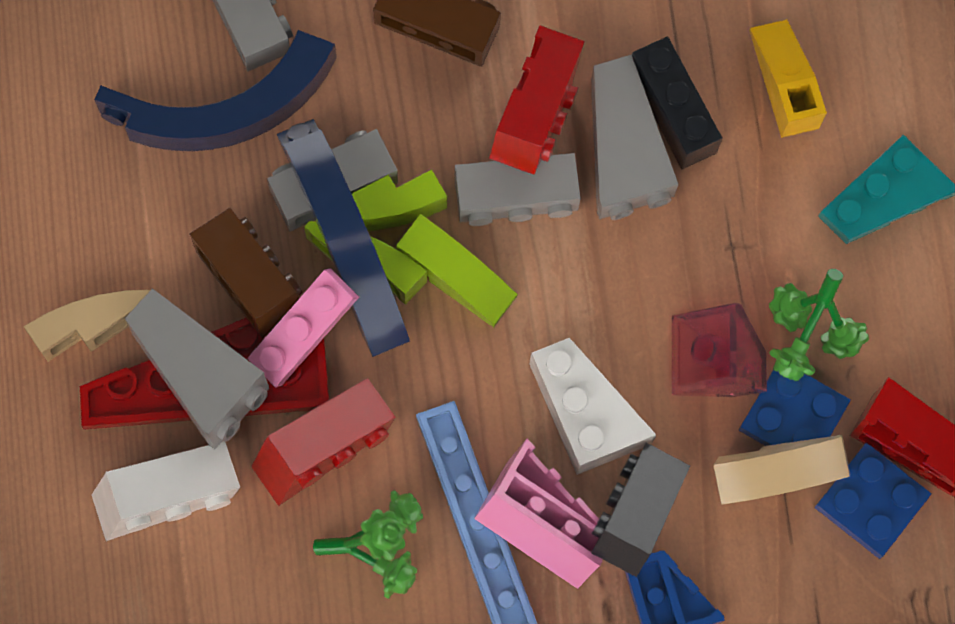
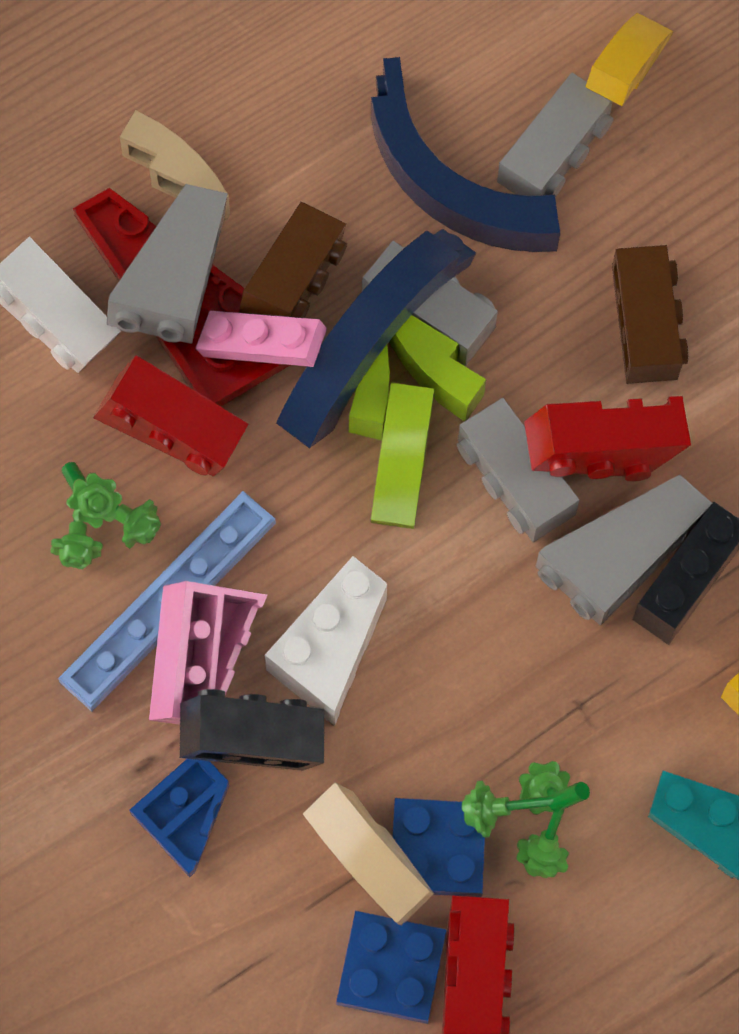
camera: 65 degrees right, 5 degrees down
(717, 354) = (455, 739): clear pink slope -> none

